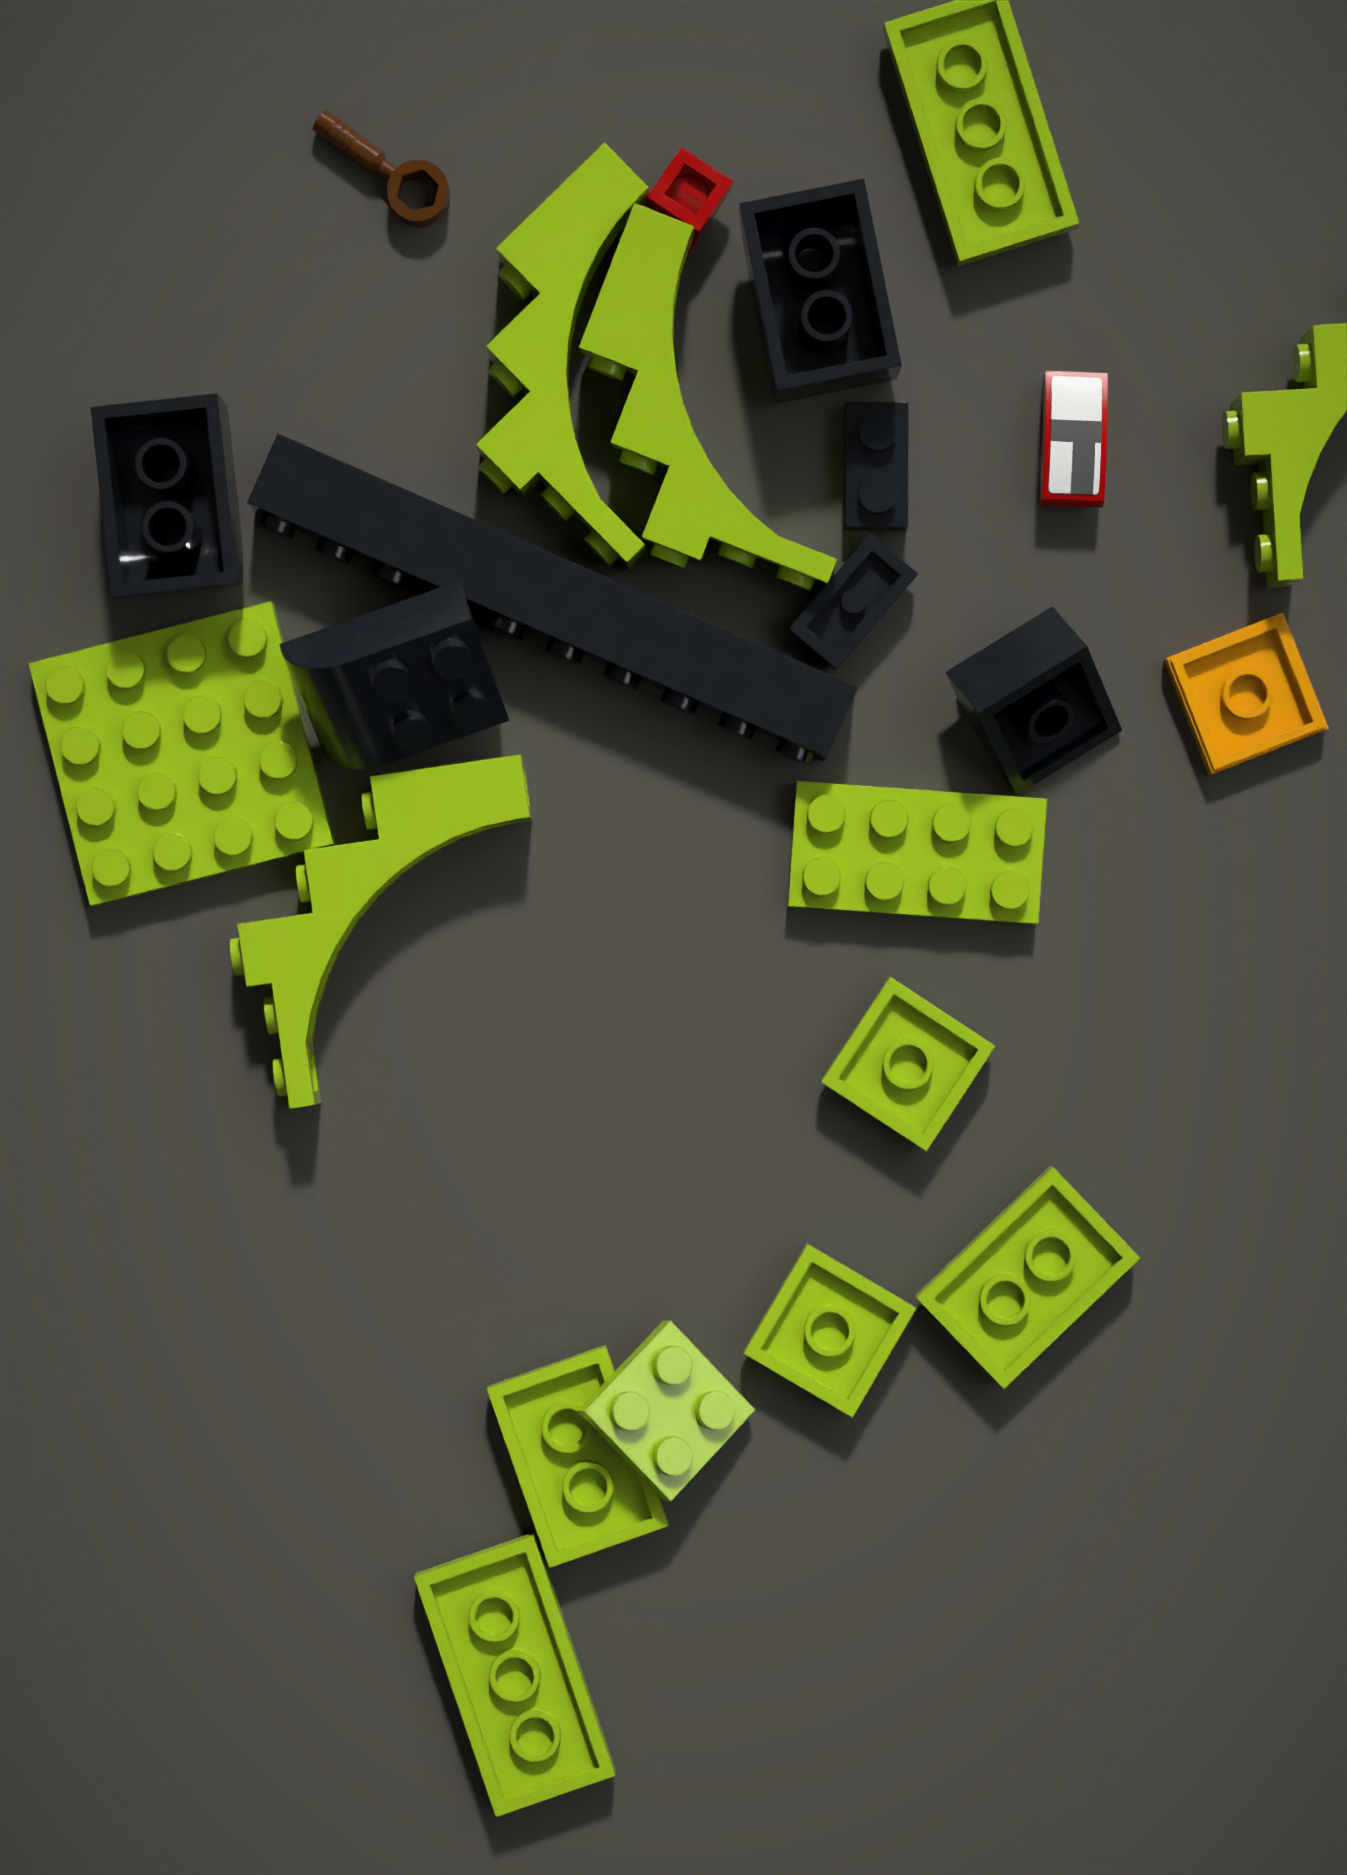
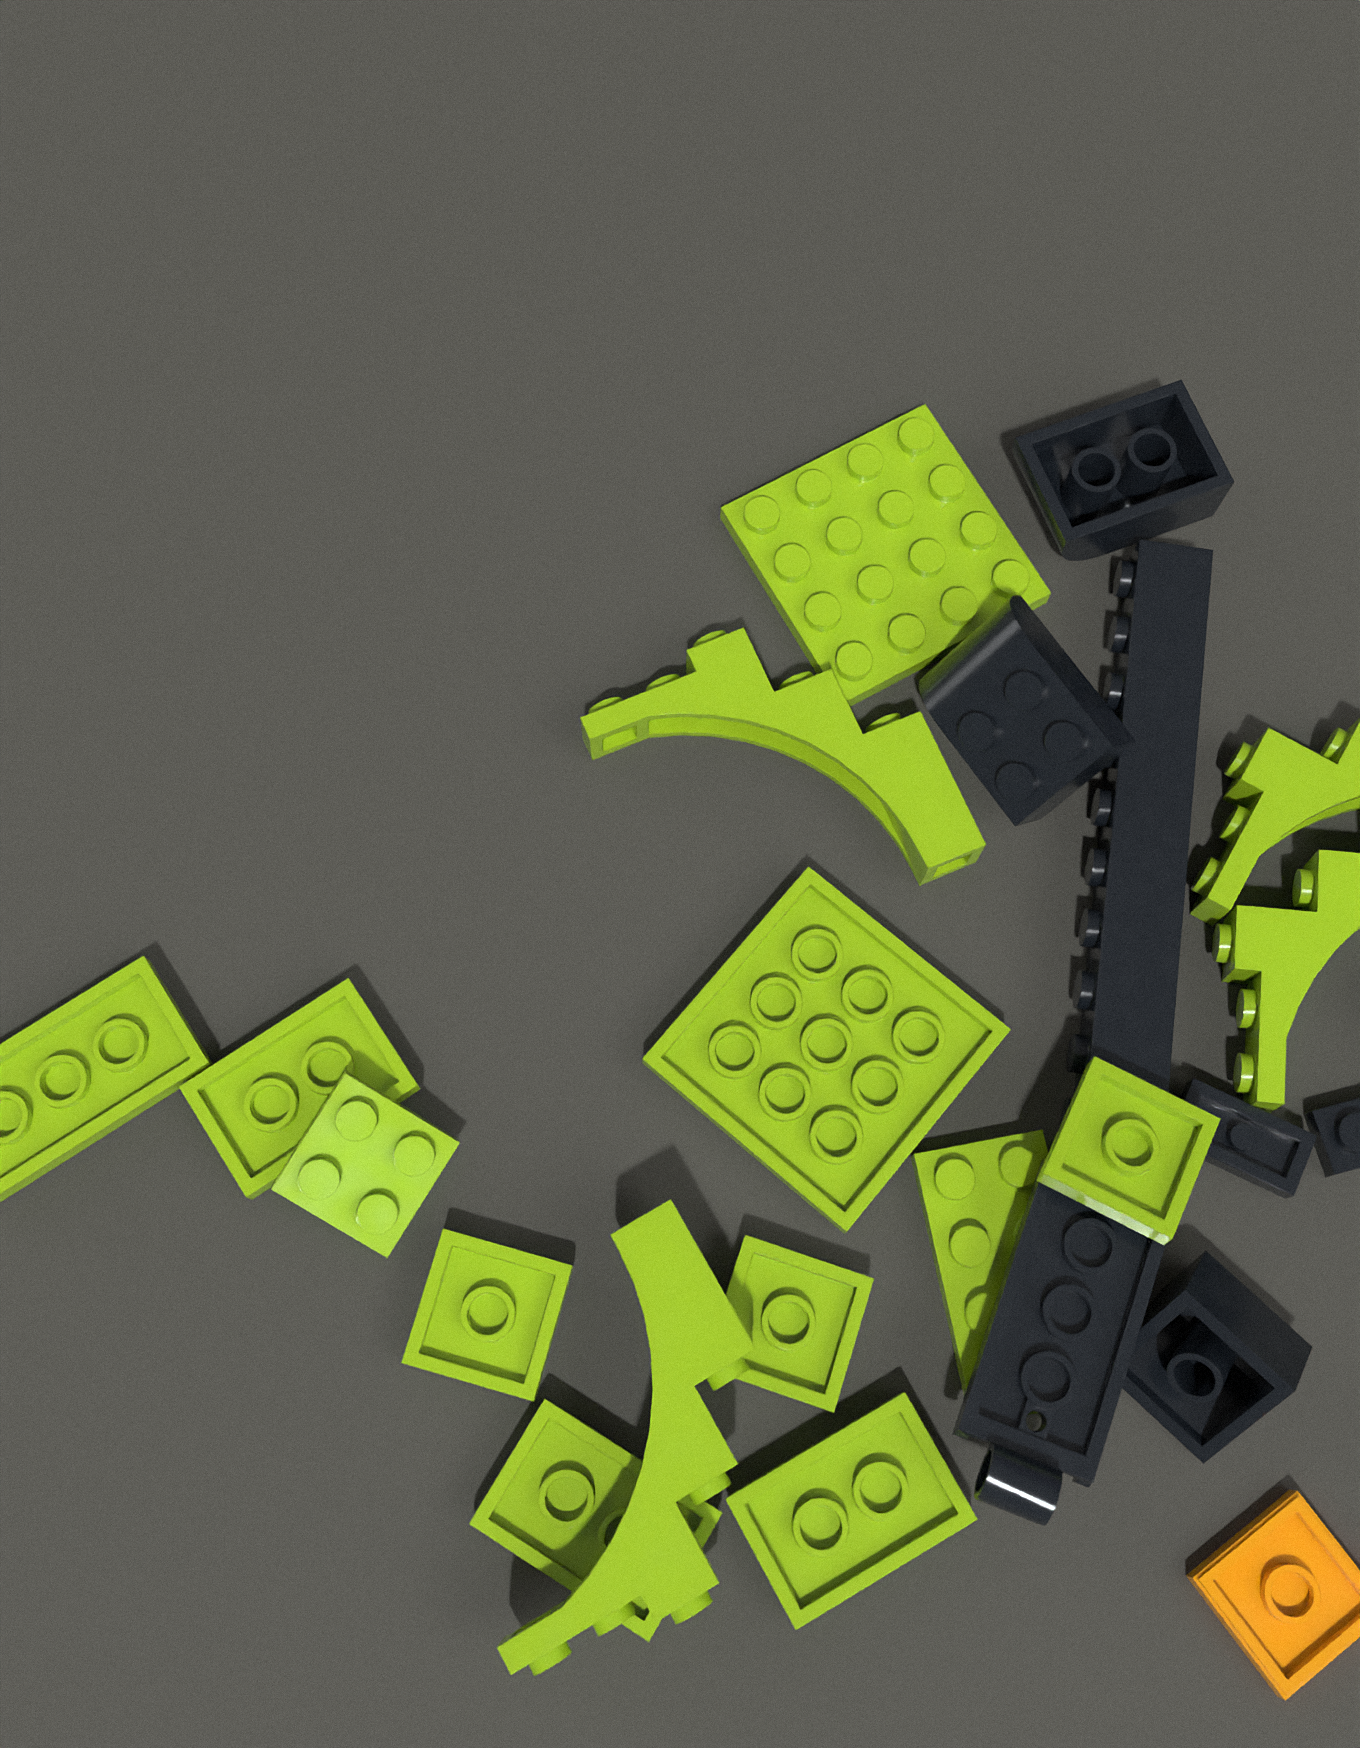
camera: 70 degrees right, 15 degrees down
(667, 957) = (826, 1048): none -> lime plate
(844, 721) = (1129, 1150): none -> lime plate
(904, 1159) = (654, 1548): none -> lime arch
(982, 827) = (1056, 1348): none -> black hinge
(1078, 1054) = (850, 1509): none -> lime plate

